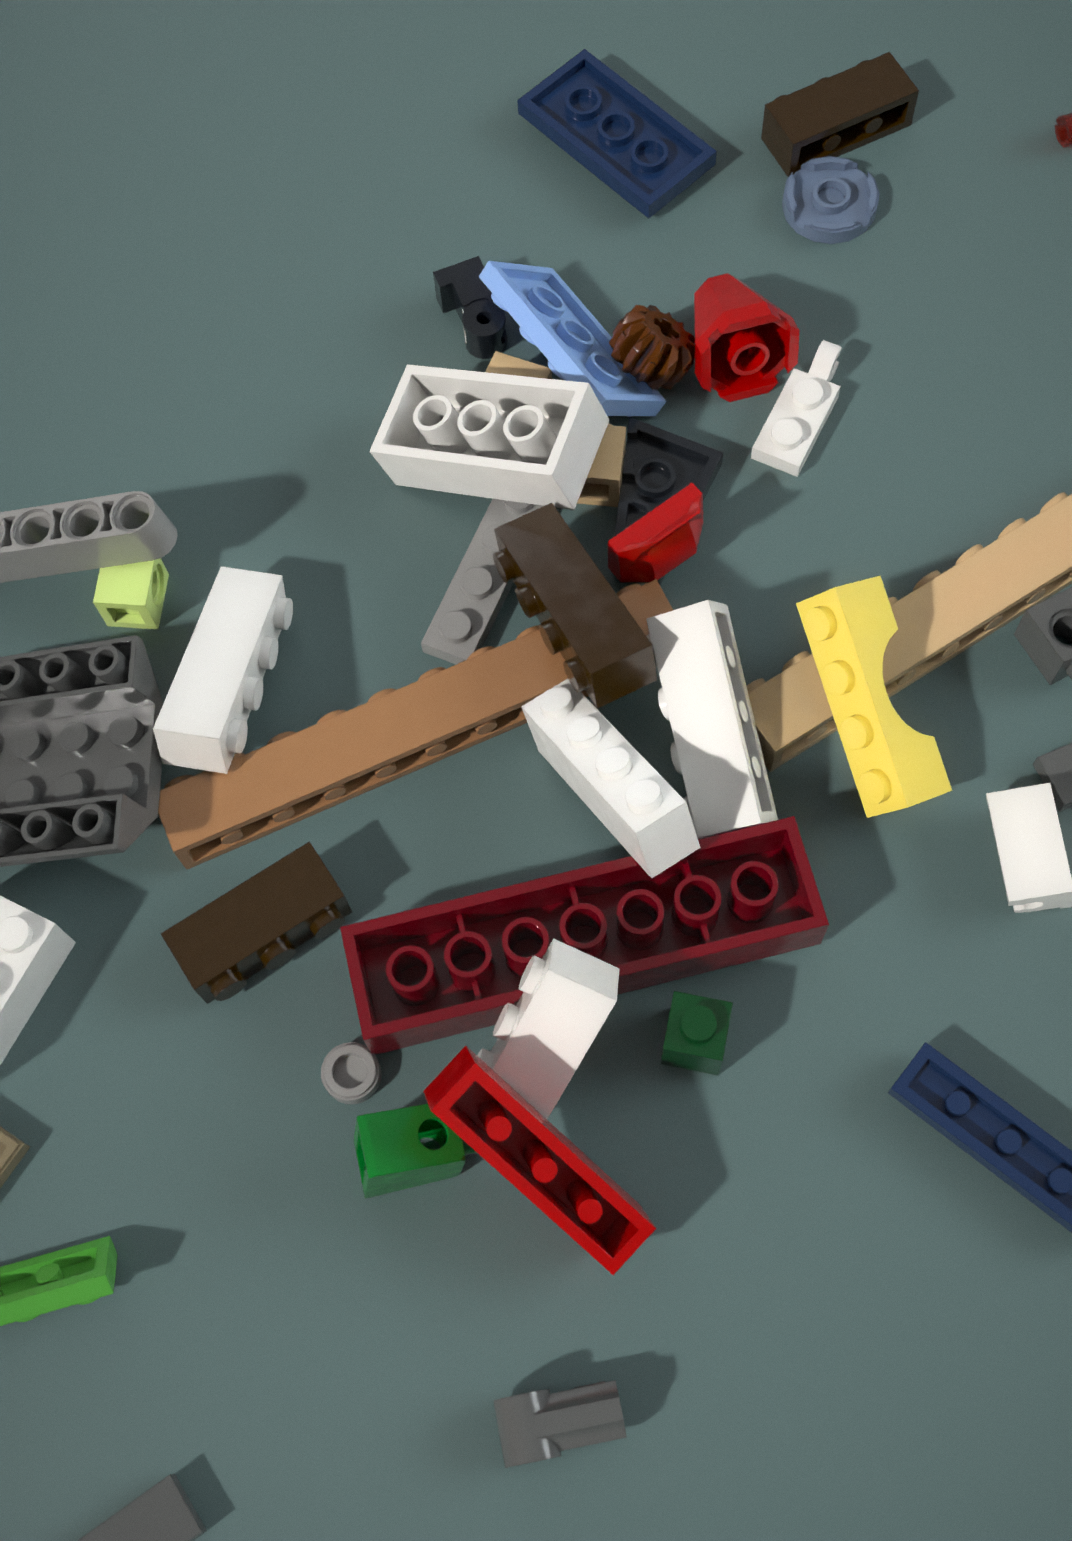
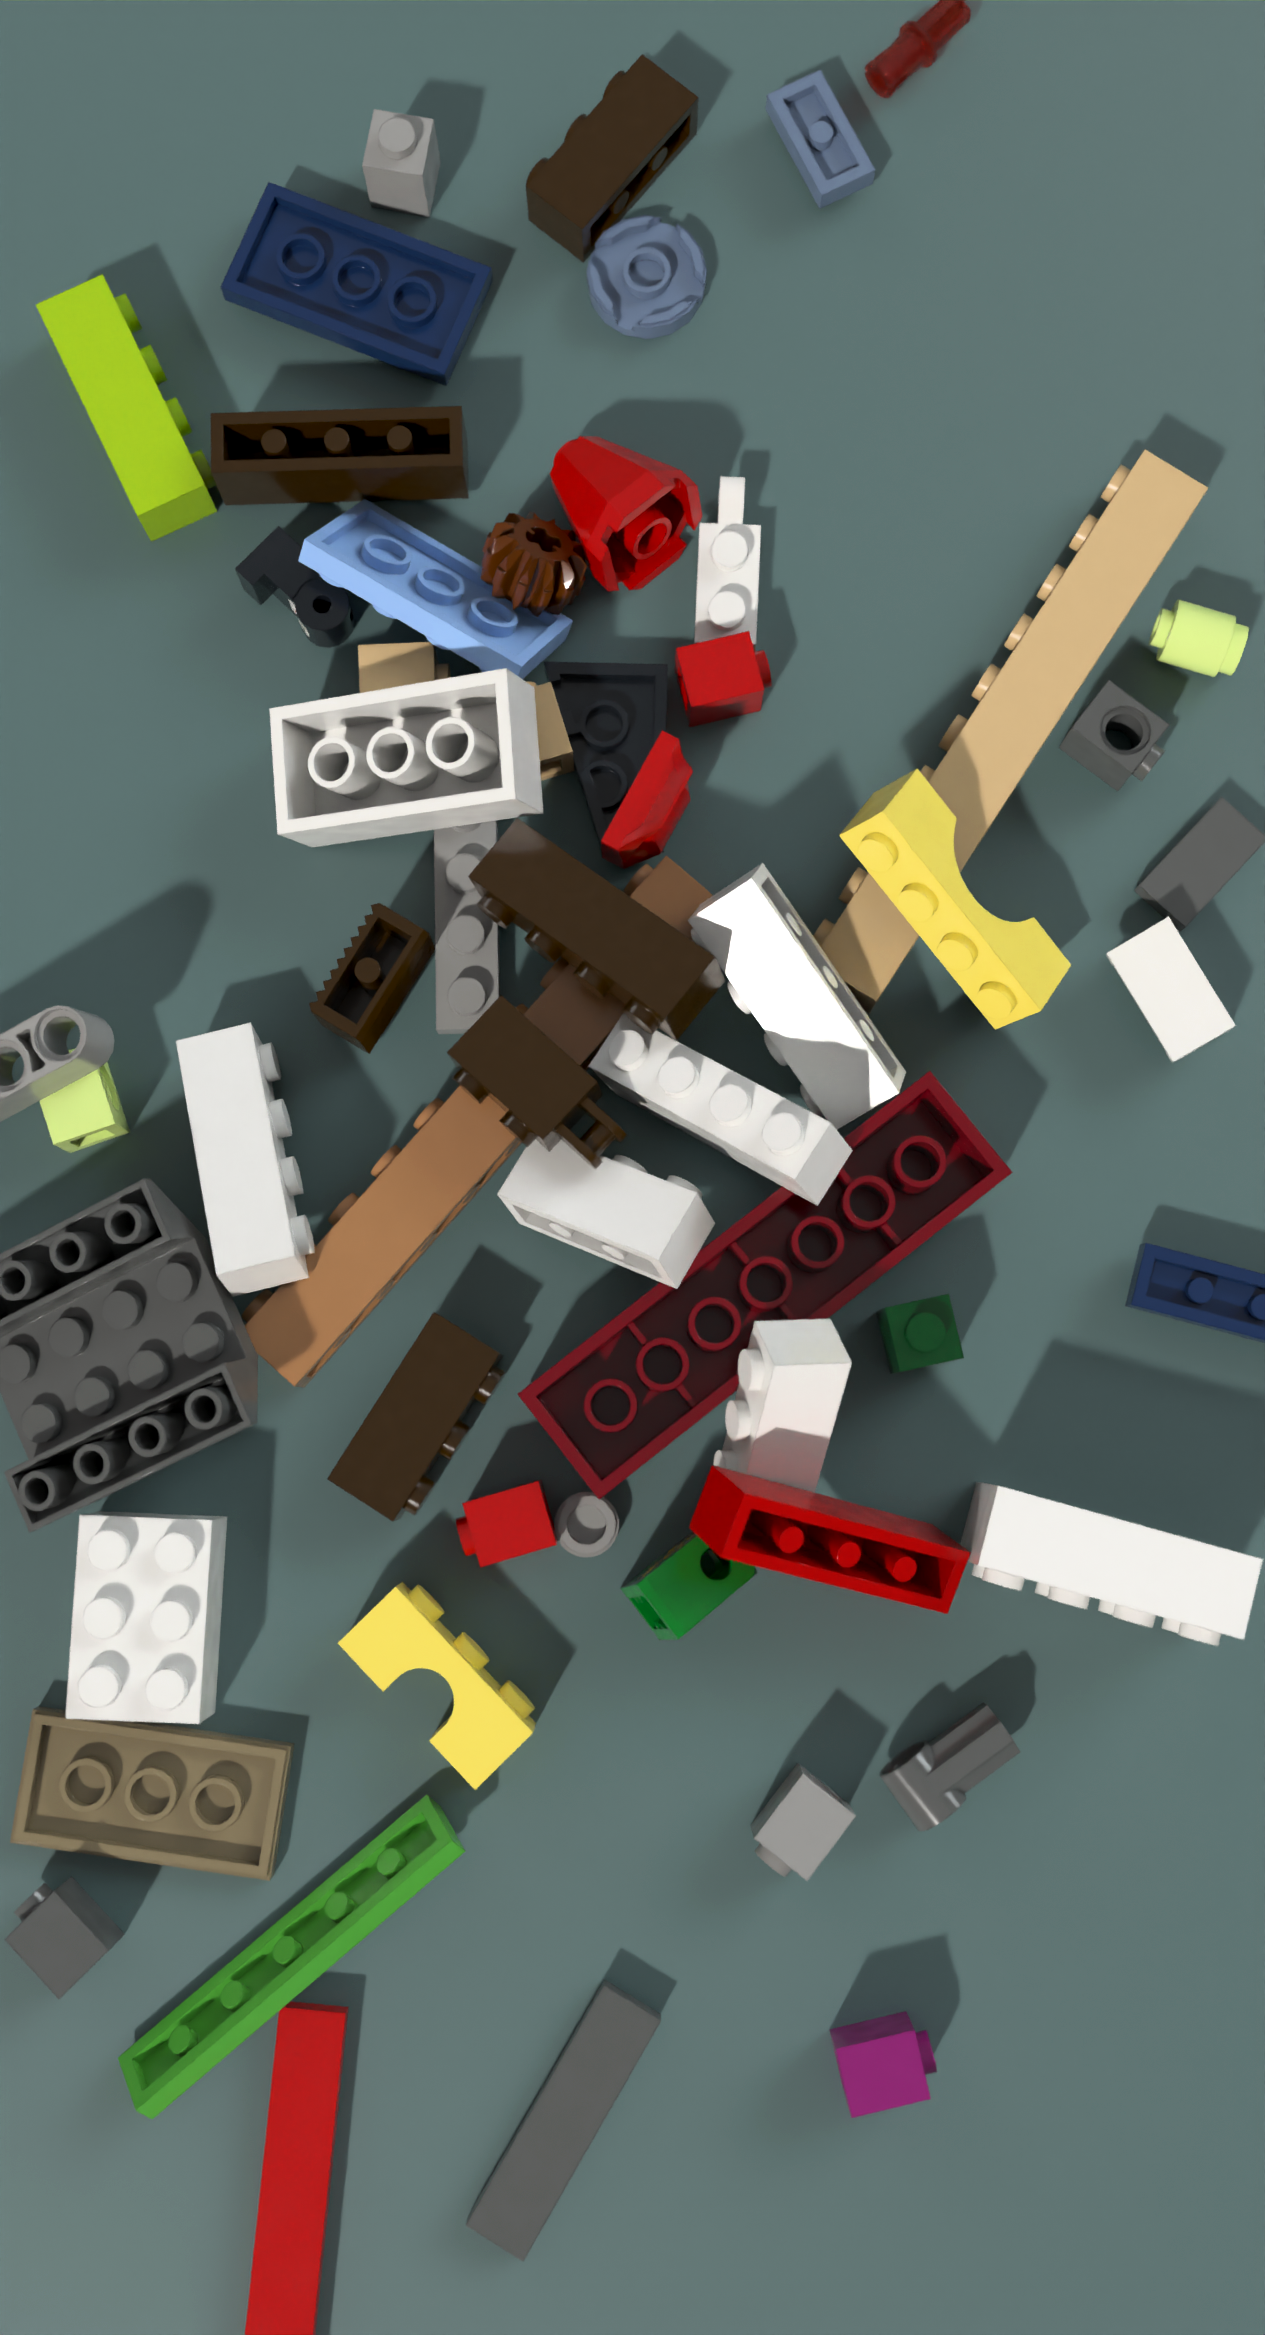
camera: 30 degrees left, 15 degrees up
(186, 1190) = (486, 1717): none -> light yellow arch
(286, 1038) = (507, 1524): none -> red brick
(389, 581) = (373, 977): none -> dark brown brick
(403, 1410) = (800, 1824): none -> light grey brick
(413, 153) = (127, 408): none -> lime brick
(468, 694) = (532, 1083): none -> dark brown brick
(485, 817) = (610, 1210): none -> white brick
(547, 228) = (340, 455): none -> dark brown brick
(684, 67) = (401, 162): none -> light grey brick
(760, 479) = (721, 678): none -> red brick
(778, 1294) = (1122, 1563): none -> white brick
(1001, 153) = (820, 139): none -> sand blue plate

